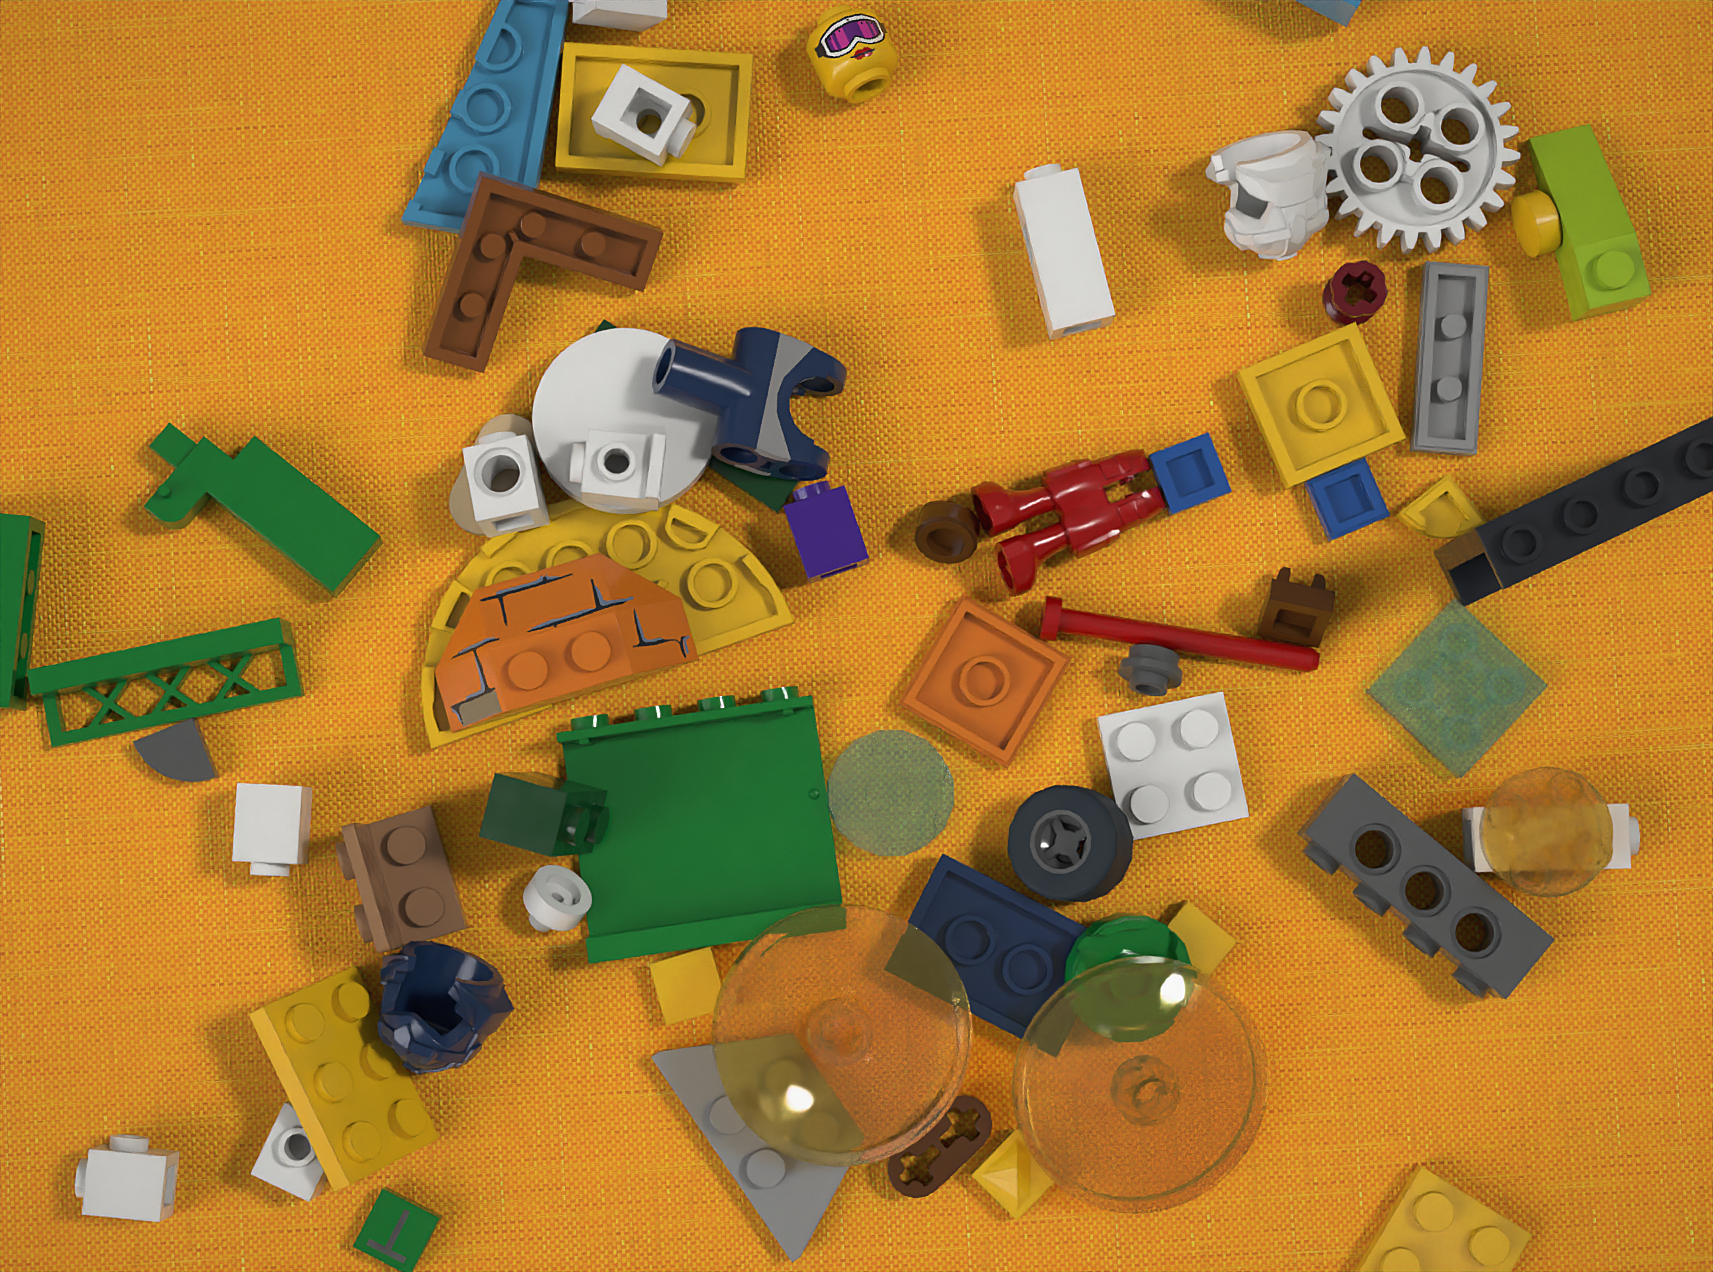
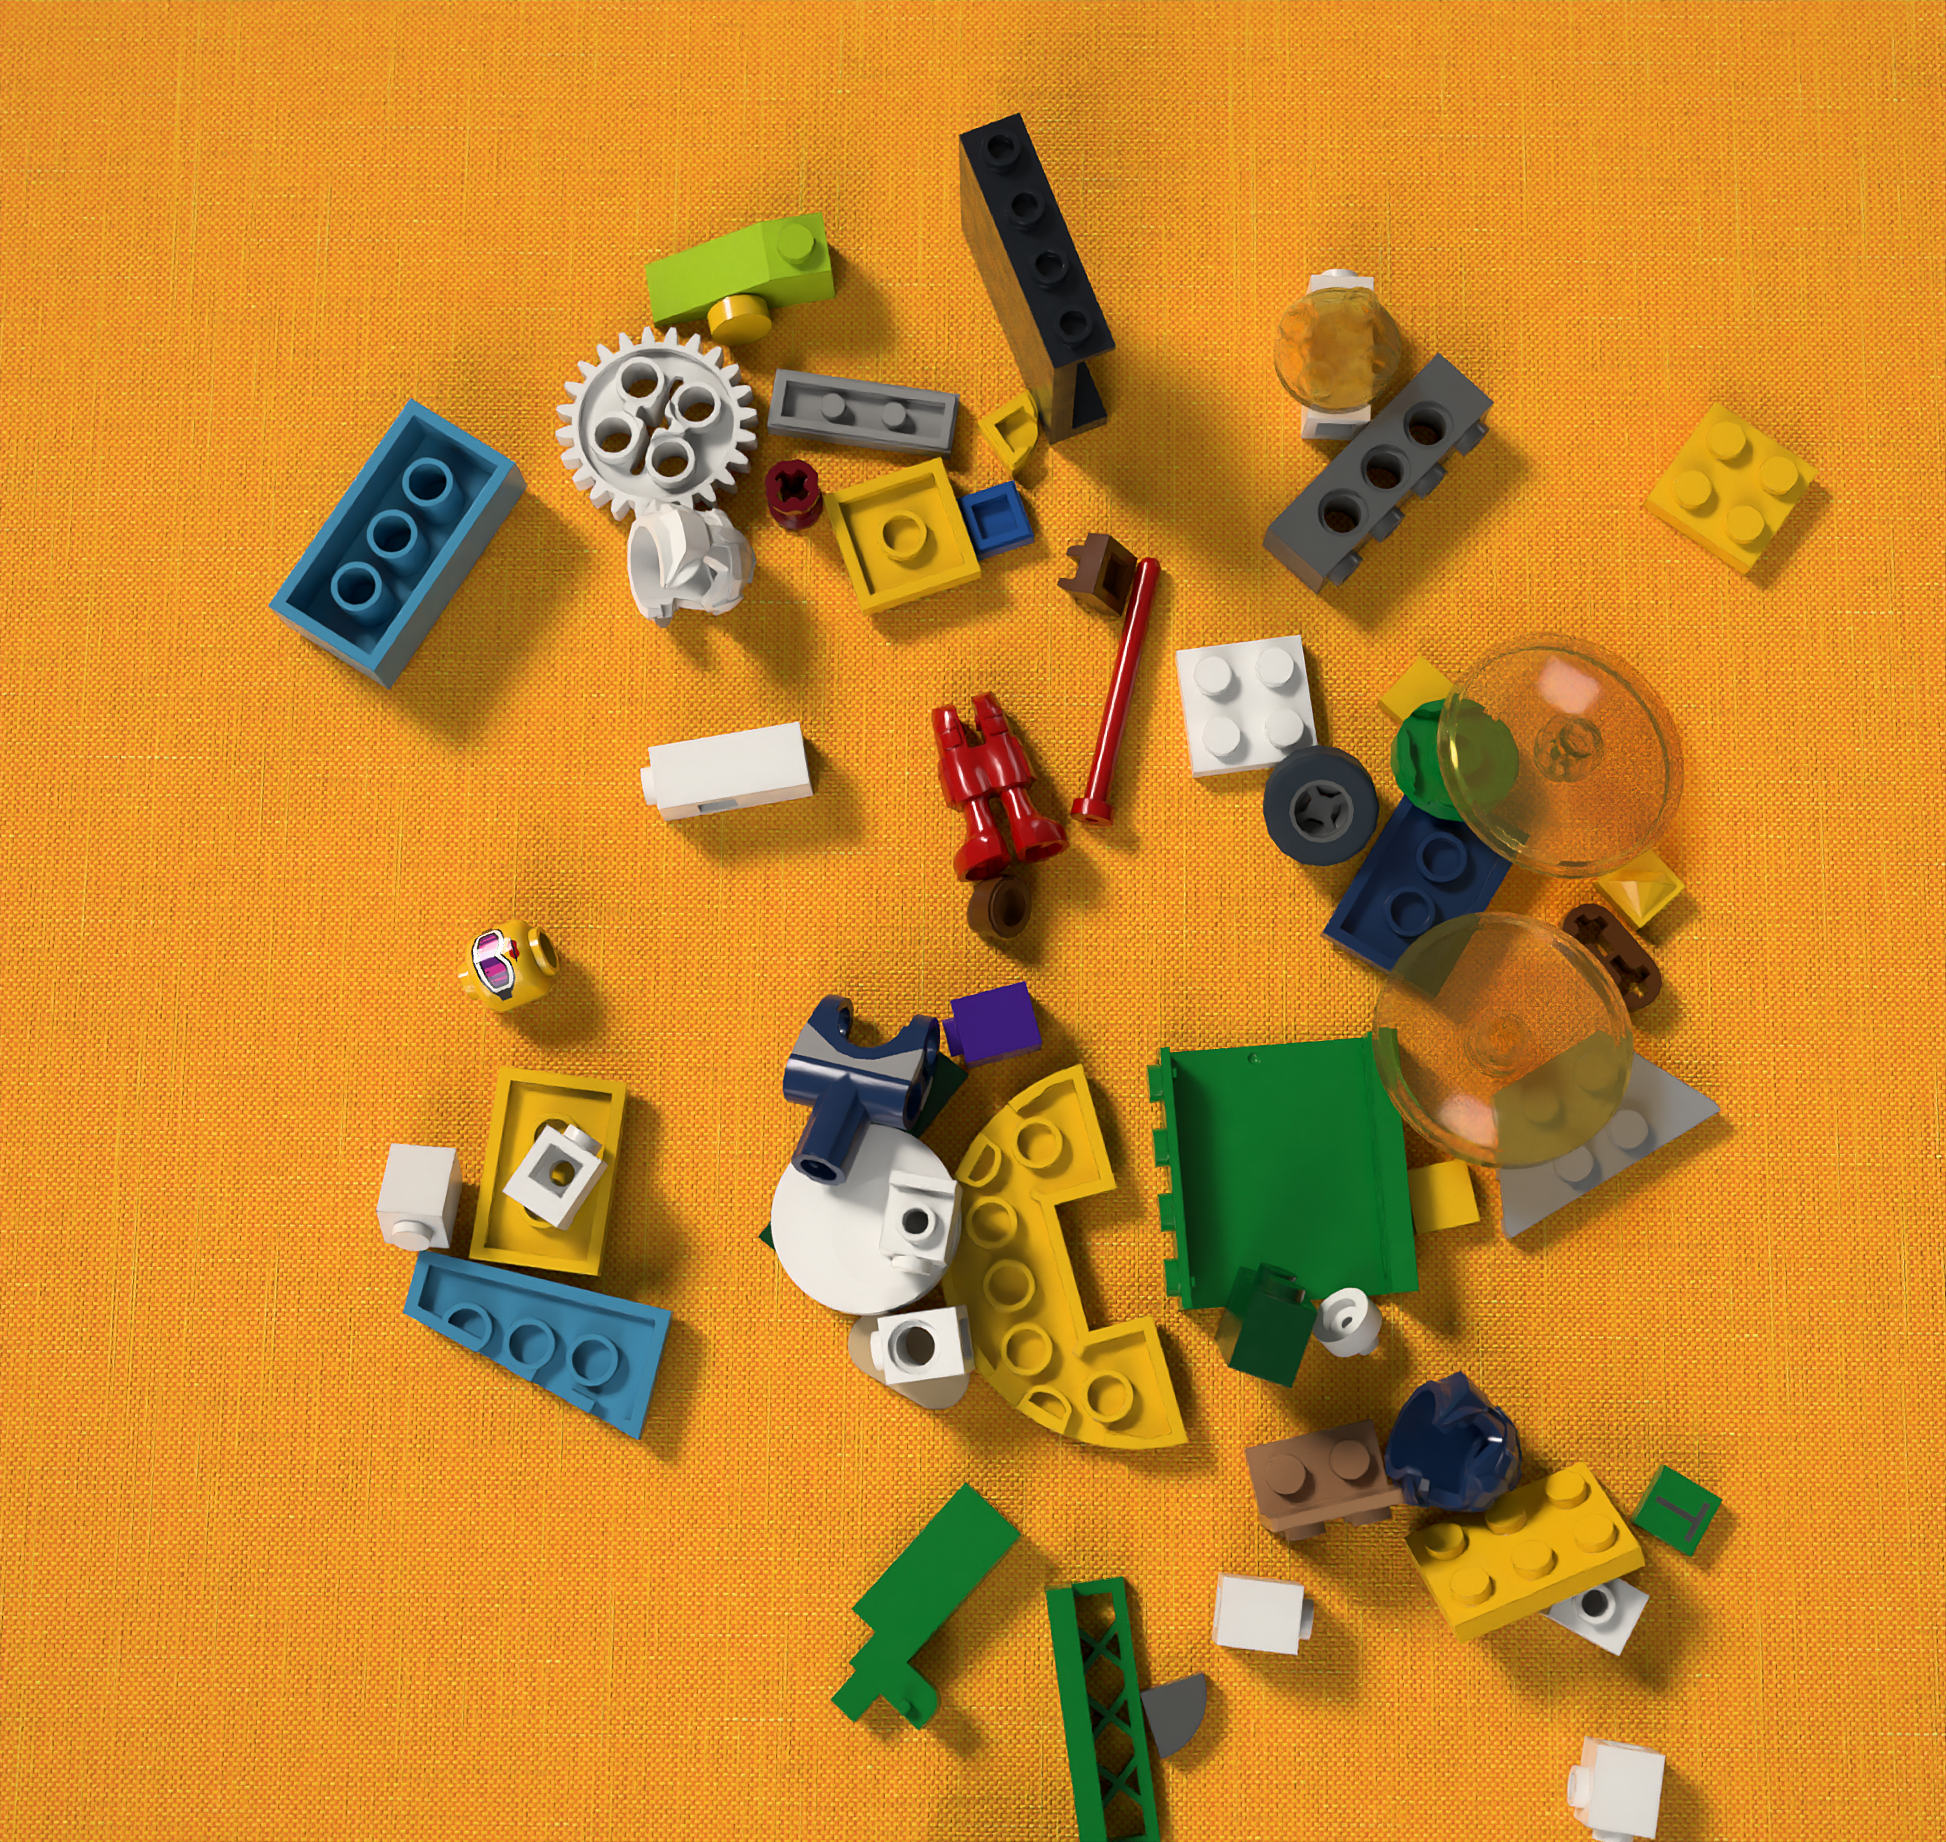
camera: 85 degrees left, 5 degrees down
(520, 221) = (660, 1334): dark orange plate -> none
(558, 640) = (1088, 1302): orange wedge -> none
(890, 793) = (1257, 982): clear light blue tile -> none
(984, 681) = (1150, 882): orange tile -> none
(1151, 669) = (1151, 717): dark grey plate -> none
(1189, 474) = (960, 666): blue plate -> none
(1456, 688) = (1185, 432): clear light blue tile -> none

